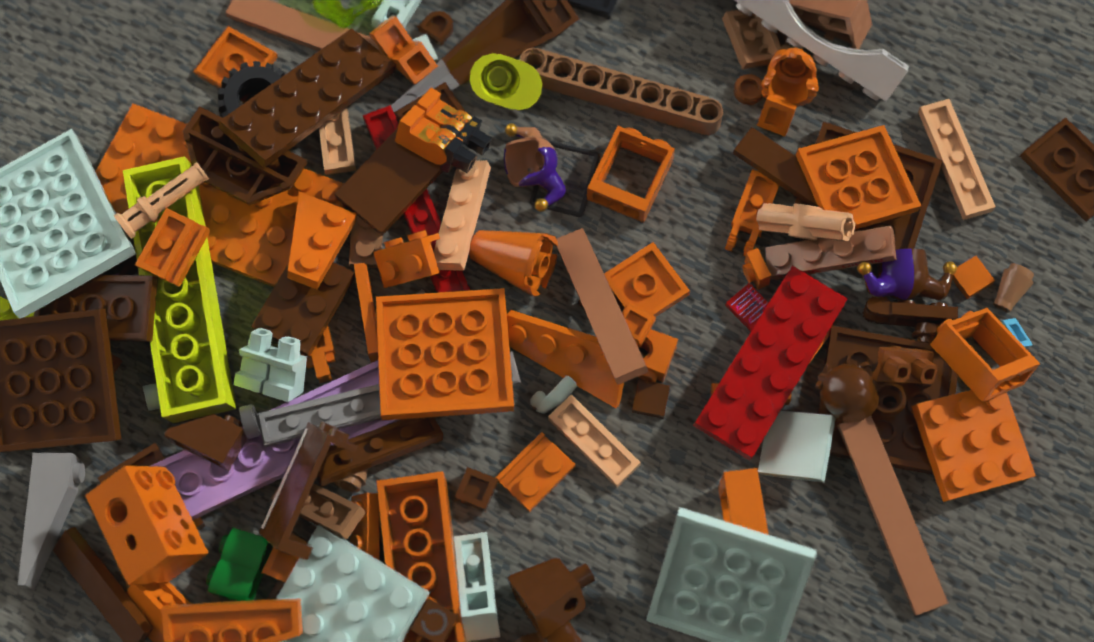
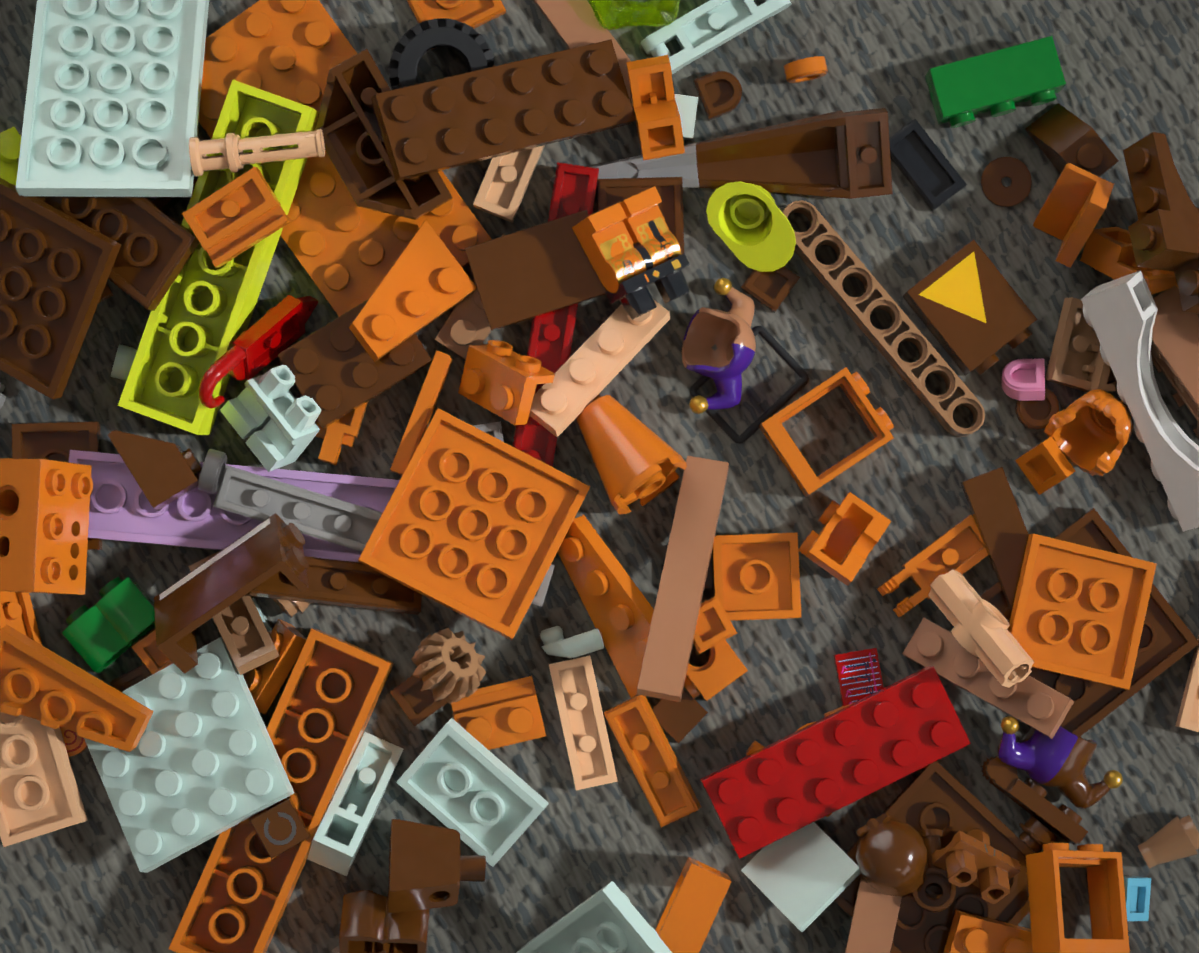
camera: 25 degrees right, 15 degrees up
(234, 328) = (258, 345): none -> red plate
(483, 454) = (448, 665): none -> medium nougat gear
(540, 114) = (770, 287): none -> reddish brown tile
(549, 527) = (472, 792): none -> light aqua plate
(654, 436) = (652, 760): none -> orange tile
(670, 53) = (971, 309): none -> reddish brown brick
(684, 227) = (846, 538): none -> orange cylinder
(730, 76) = (1024, 379): none -> bright pink tile
(756, 269) = (893, 639): orange plate -> none
(972, 277) = (1136, 800): orange tile -> none

